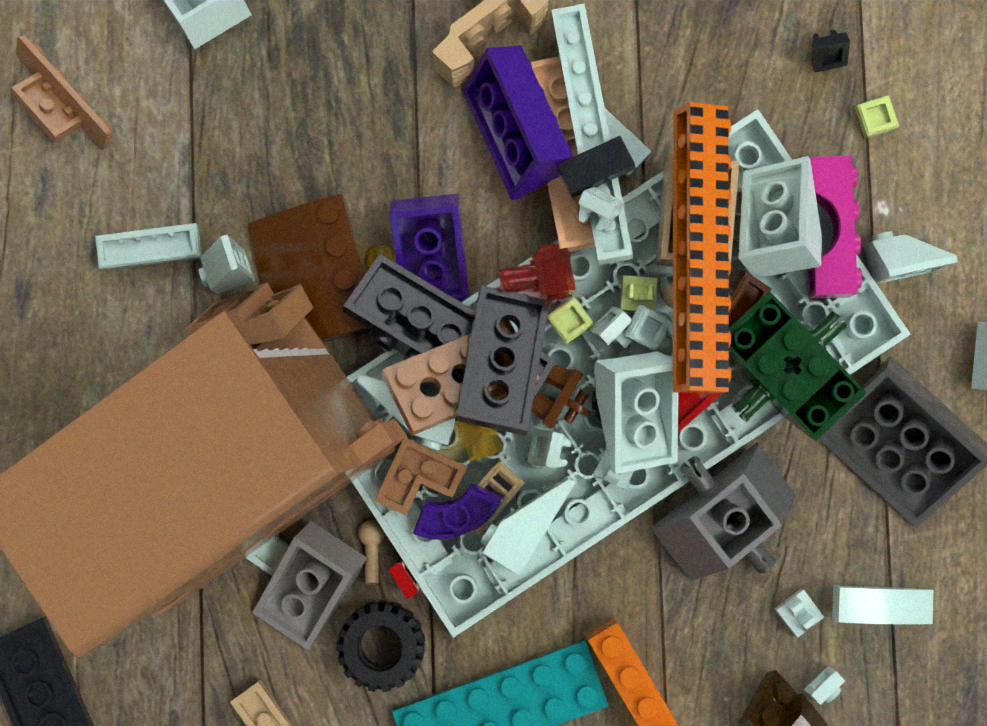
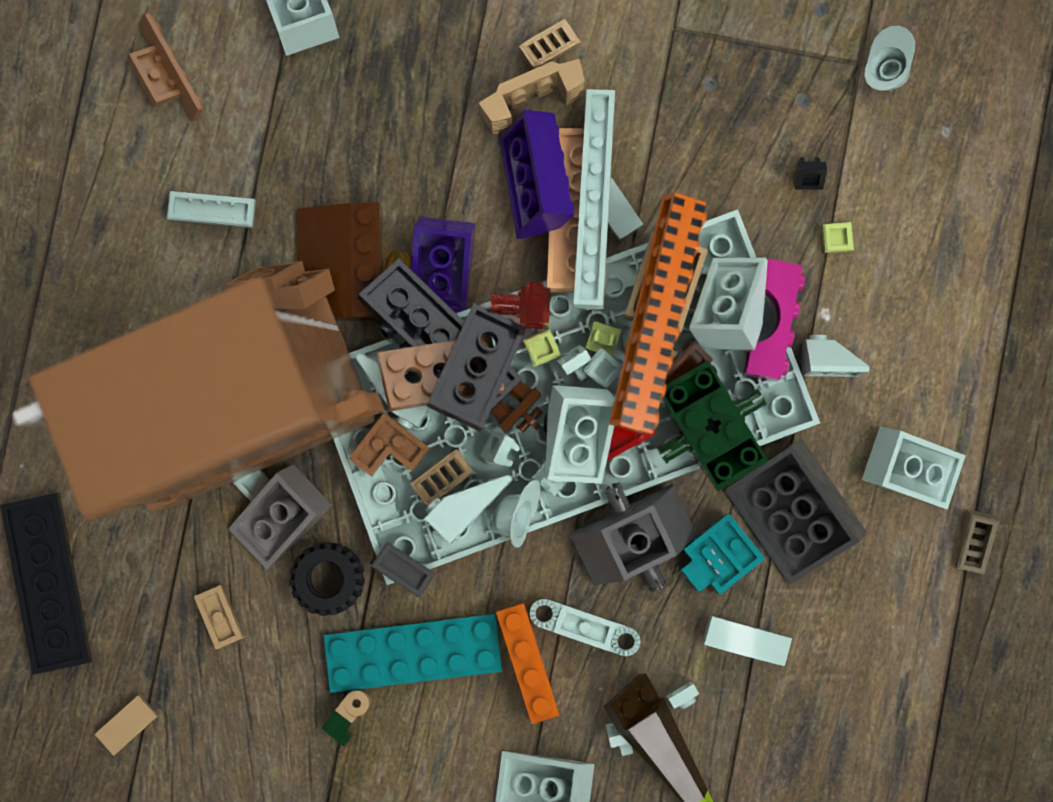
camera: 15 degrees right, 0 degrees up
(225, 266) = (270, 240): light aqua slope -> none
(371, 535) = (339, 487): tan bar -> none
(404, 579) = (358, 528): red tile -> none
(458, 516) = (413, 487): dark purple tile -> none
(468, 615) = (403, 569): none -> dark grey tile
(479, 441) = (444, 429): clear yellow brick -> none
(583, 521) = (515, 513): none -> light aqua piece
(596, 166) = (590, 227): black tile -> none
(600, 202) = (586, 258): light aqua tile -> none
(693, 632) = (585, 627): none -> light aqua plate
(799, 613) = (676, 631): light aqua tile -> none
(830, 514) = (720, 556): none -> teal piece

